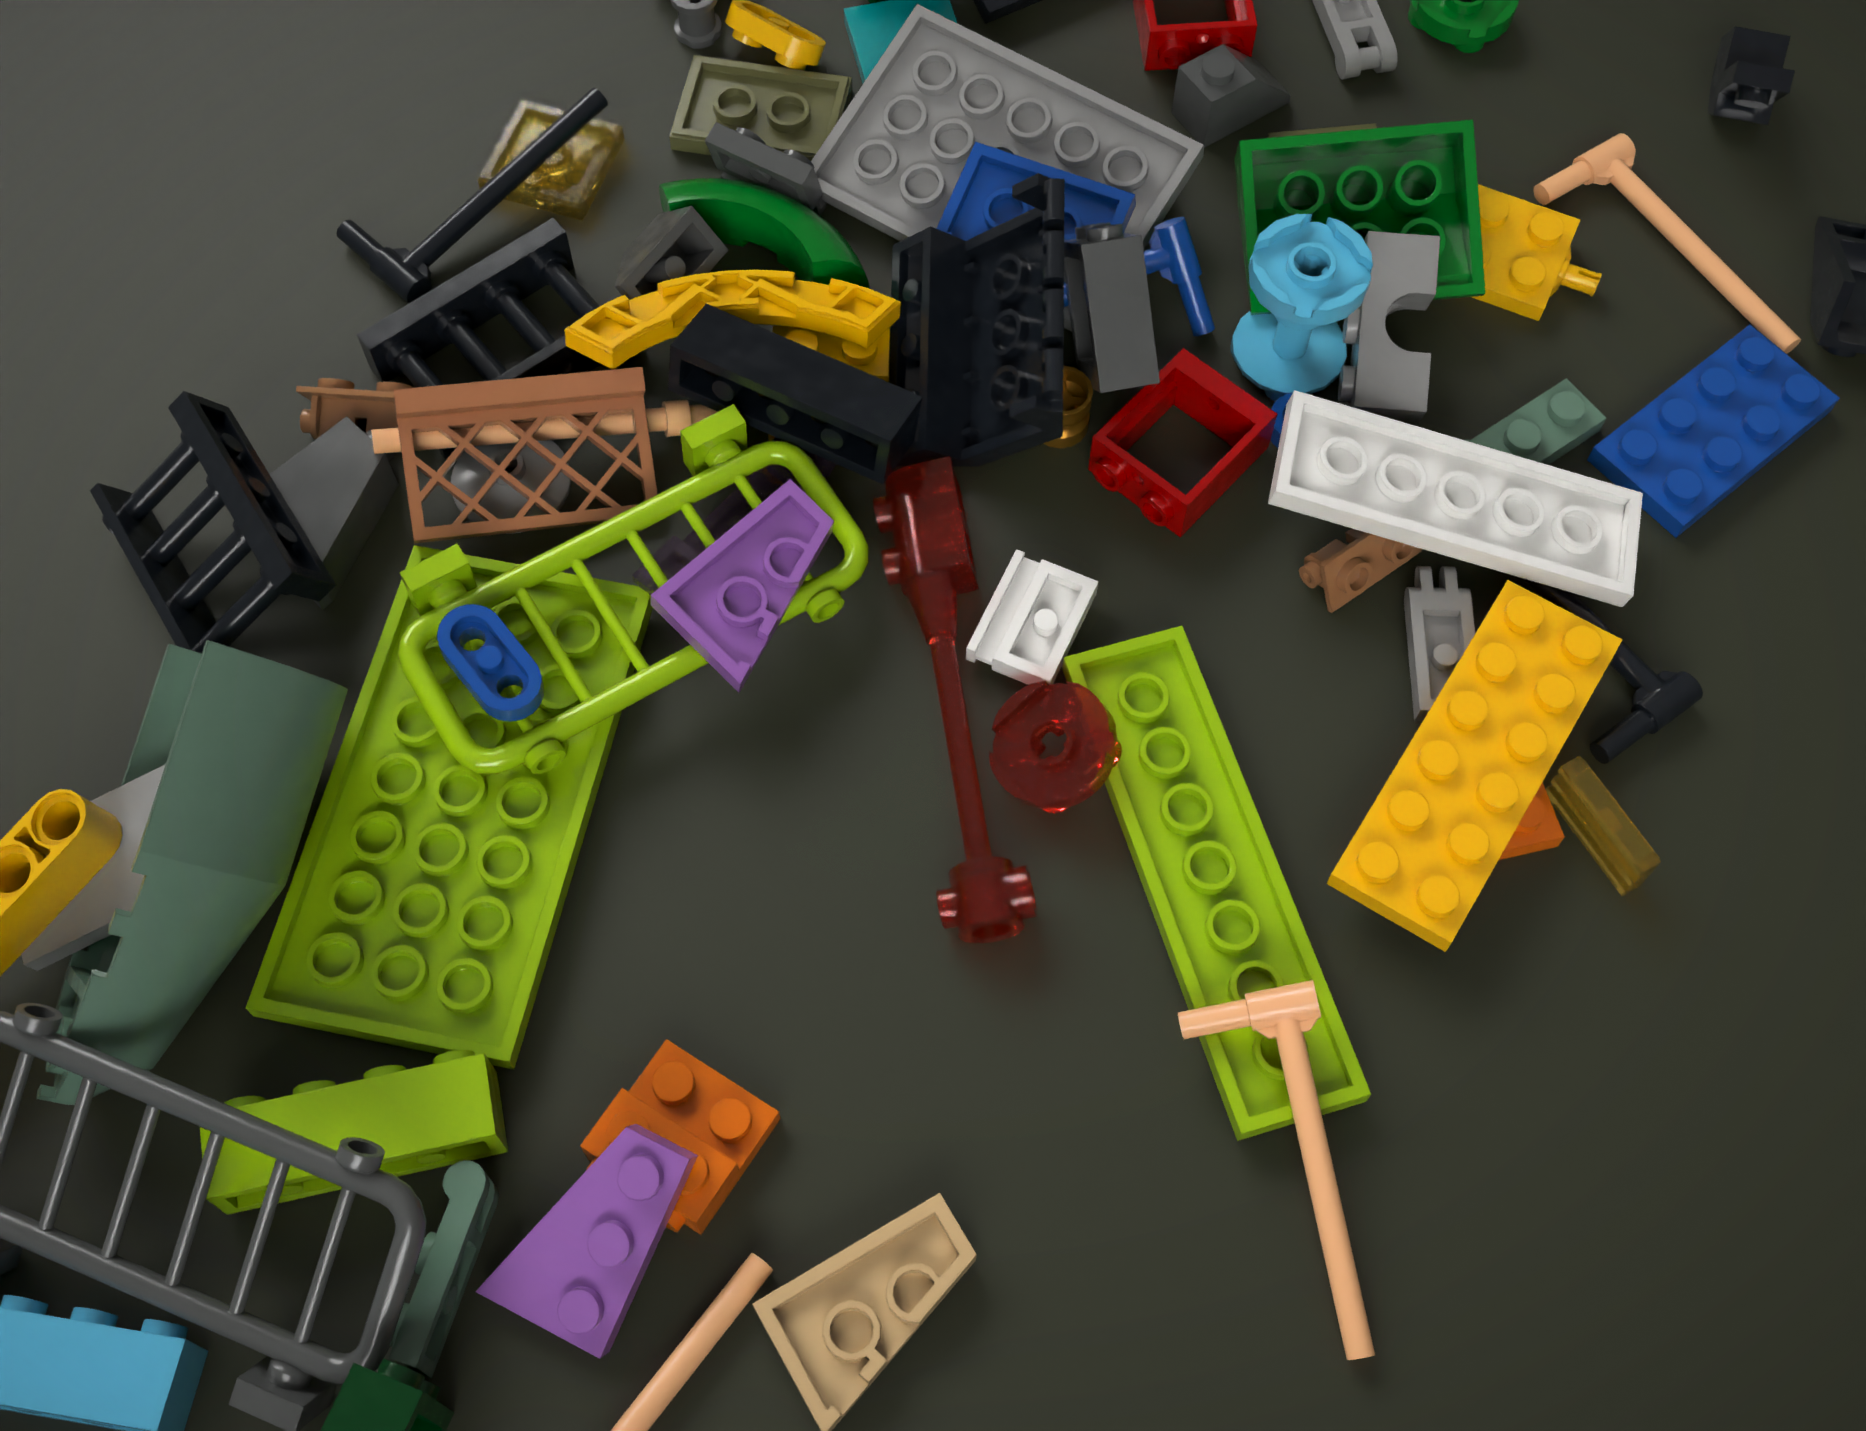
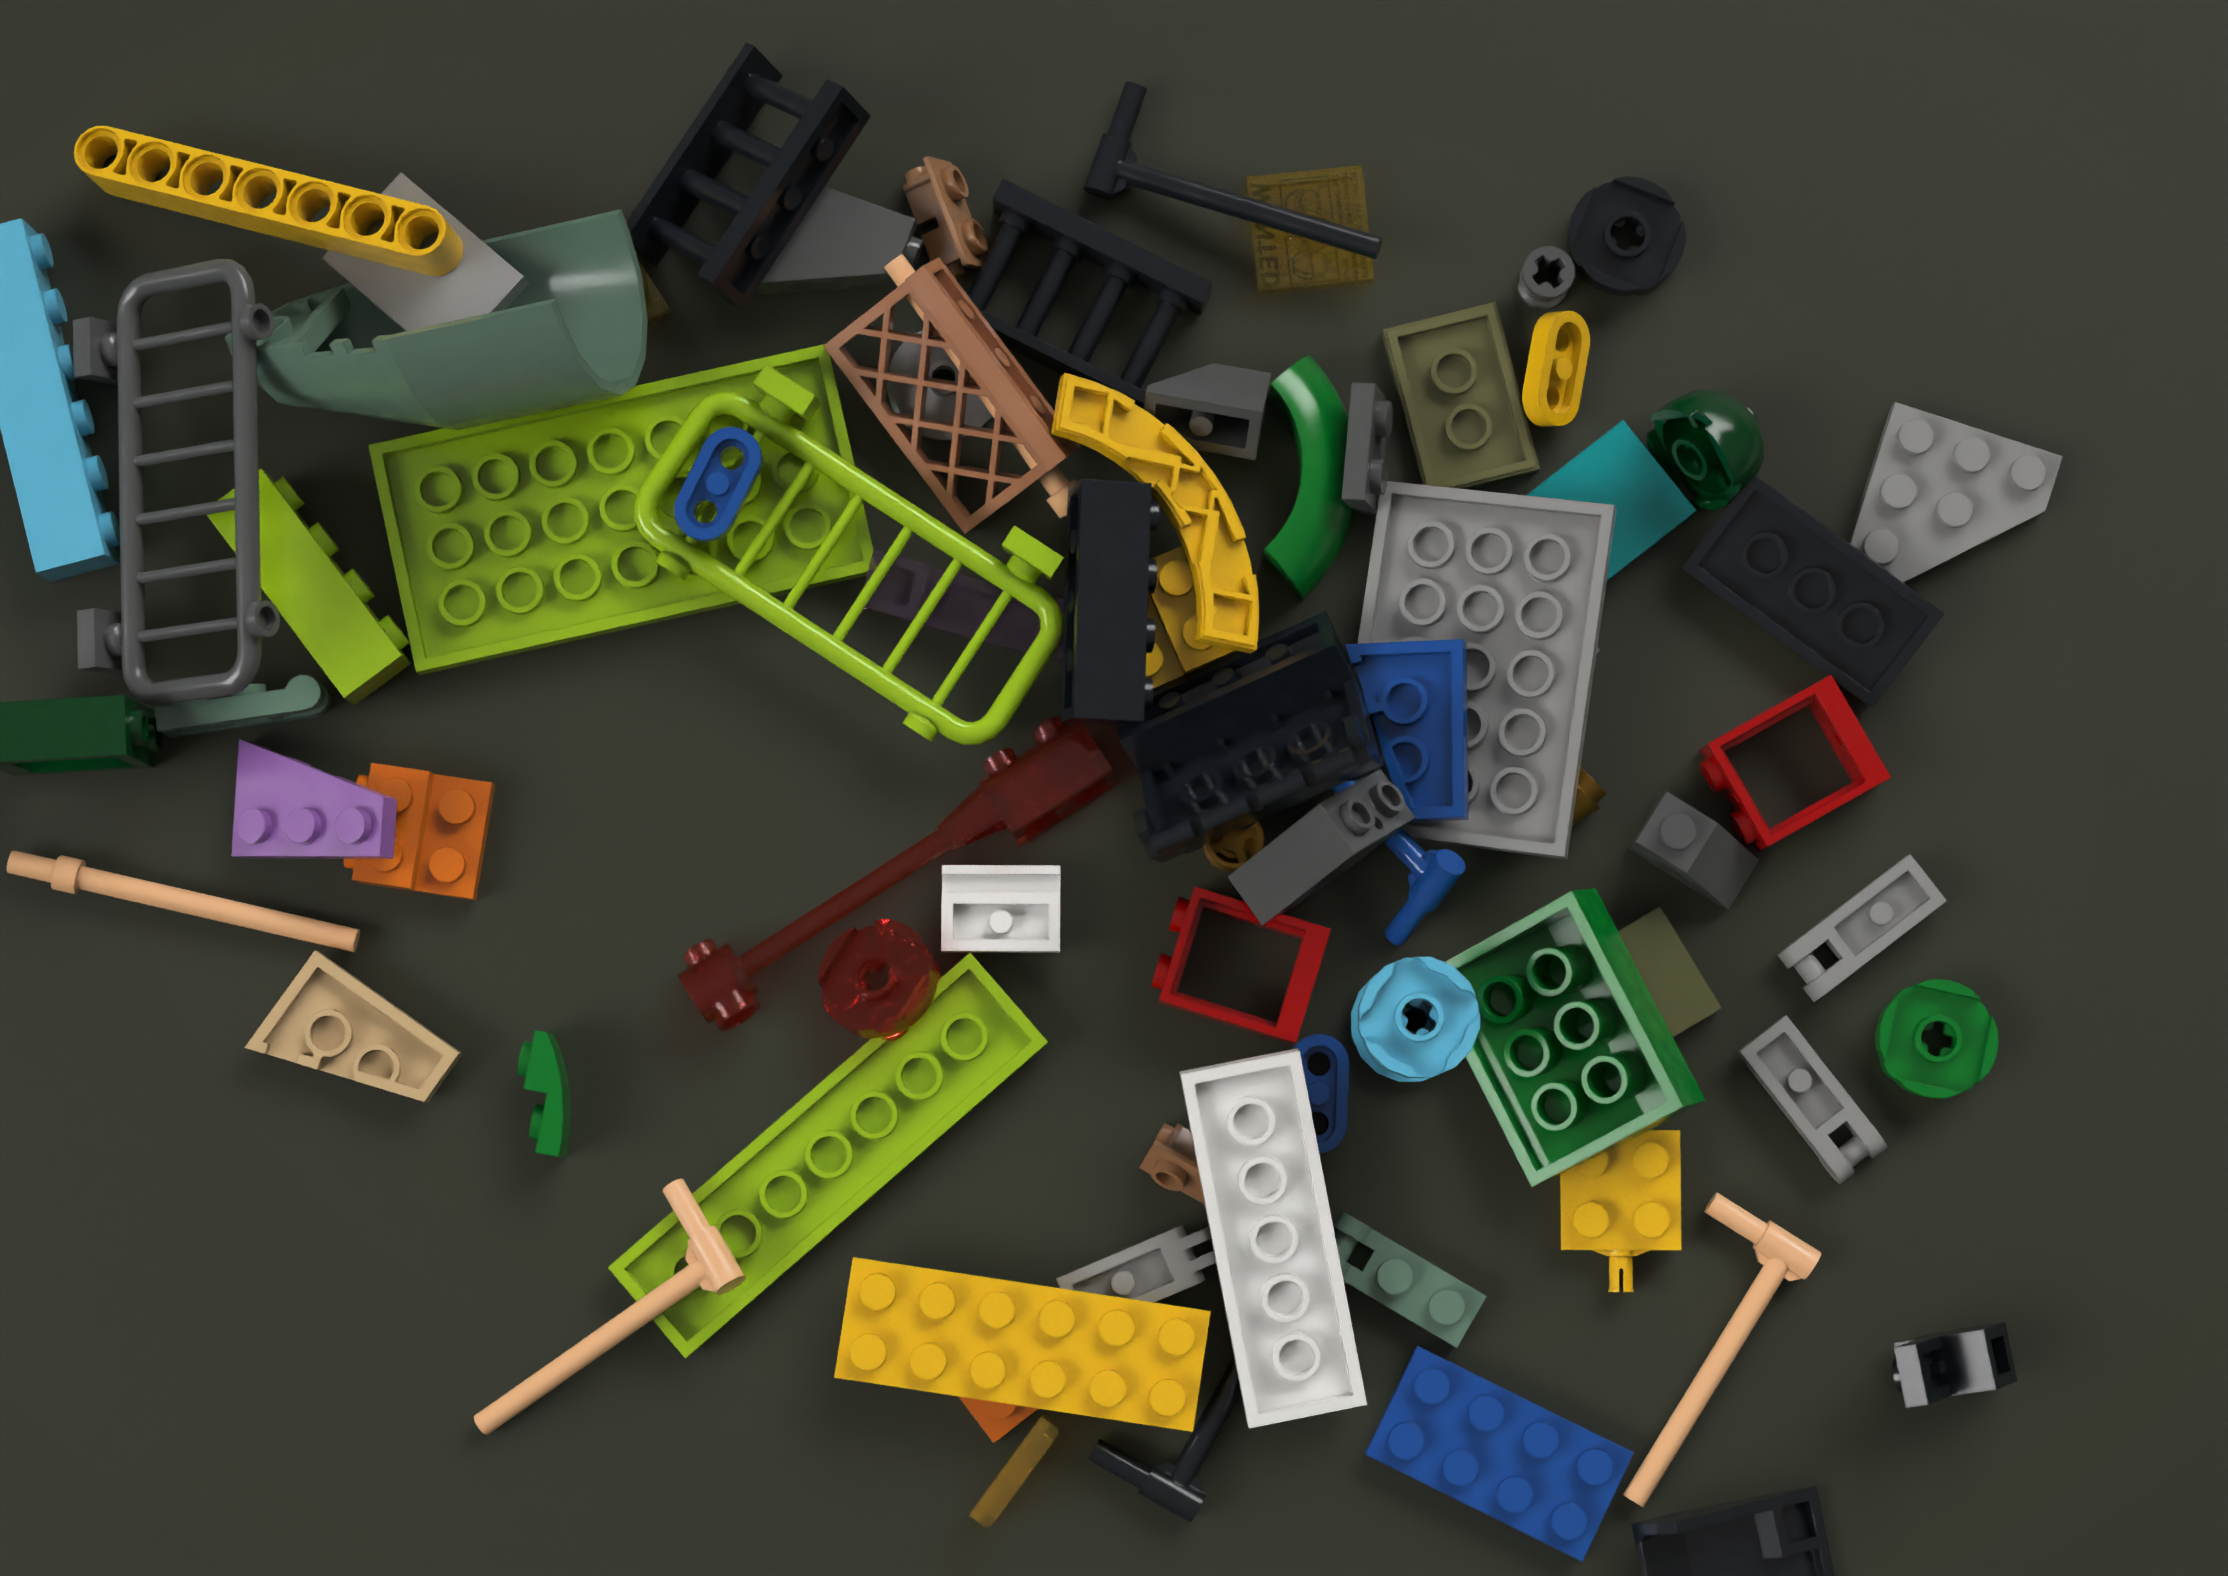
camera: 65 degrees right, 20 degrees up
(745, 582) = (895, 654): medium lavender wing -> none
(1003, 1111) = (546, 1072): none -> green slope
(1381, 374) = (1393, 1126): light grey arch -> none
(1481, 92) = (1811, 1097): none -> light grey plate

